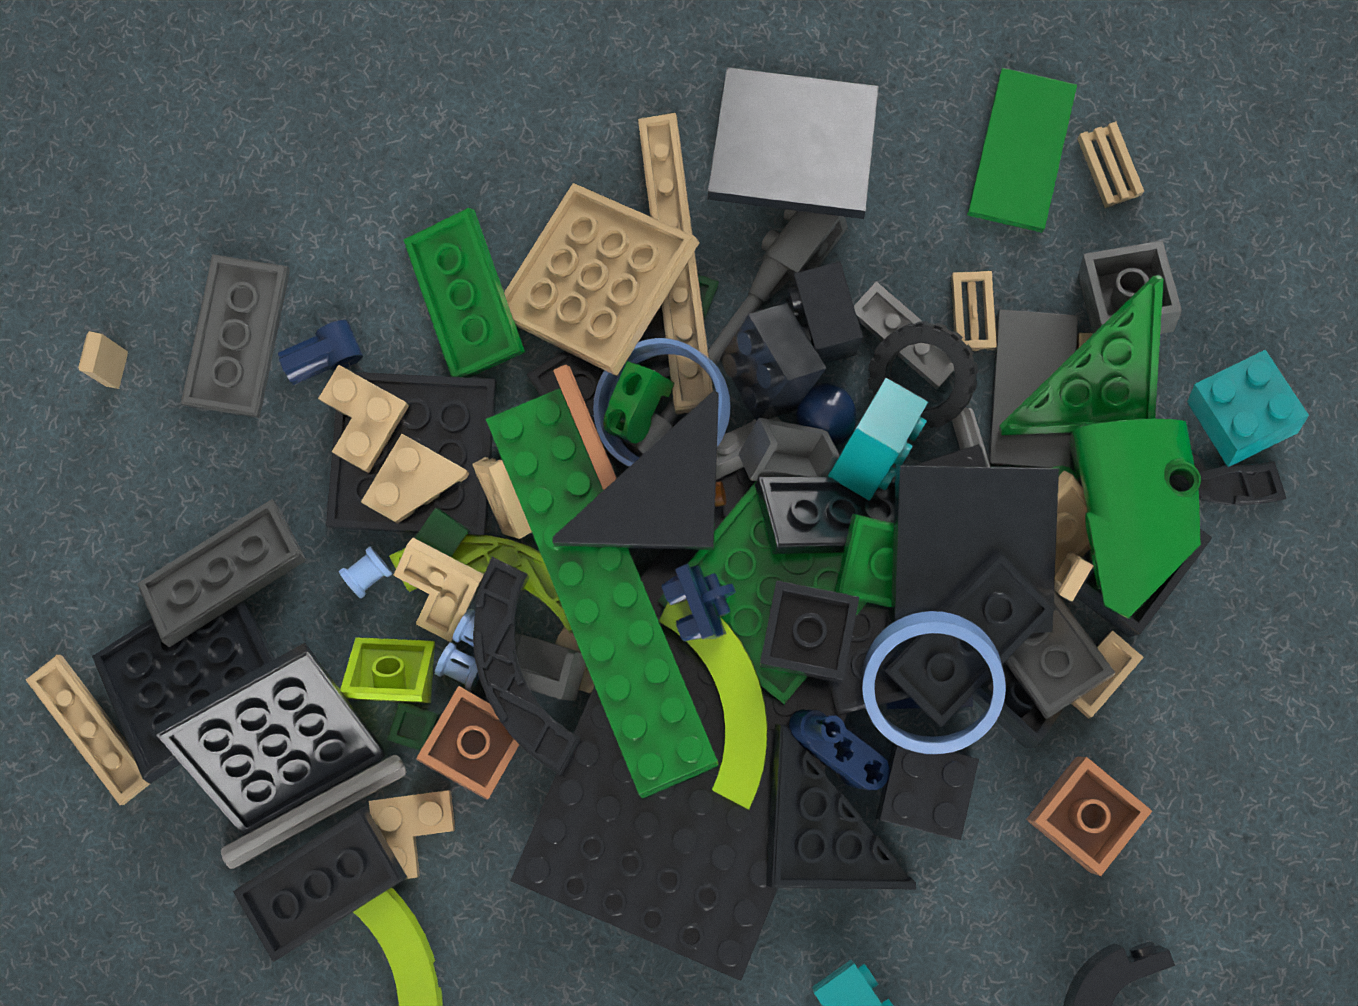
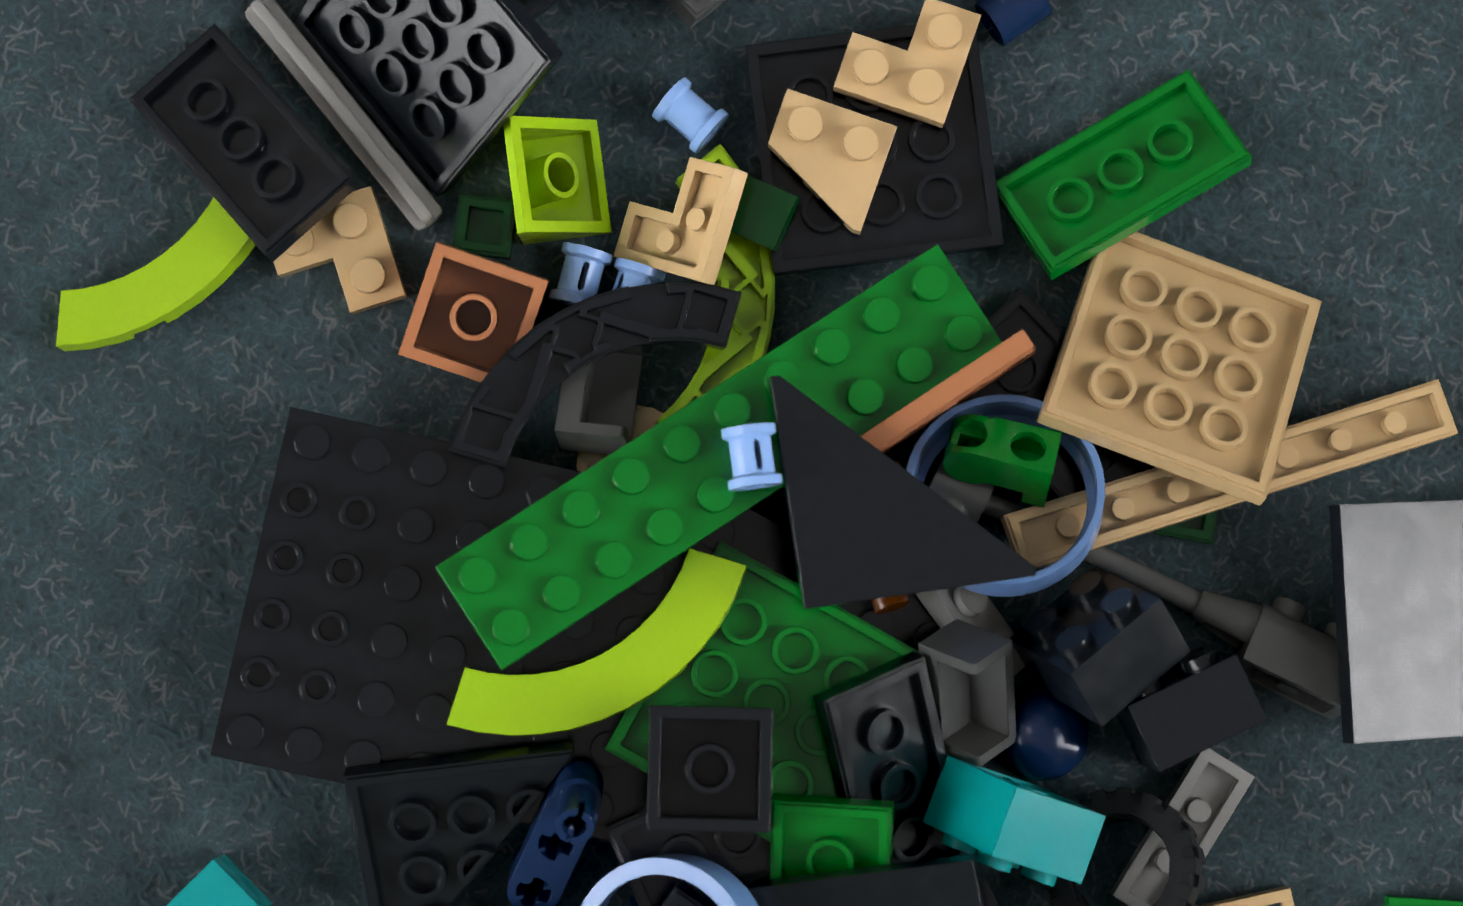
camera: 75 degrees right, 5 degrees up
(502, 497) = (831, 288): tan tile -> none
(604, 564) = (751, 456): none -> light blue bush
(705, 600) = (728, 610): dark blue hips -> none

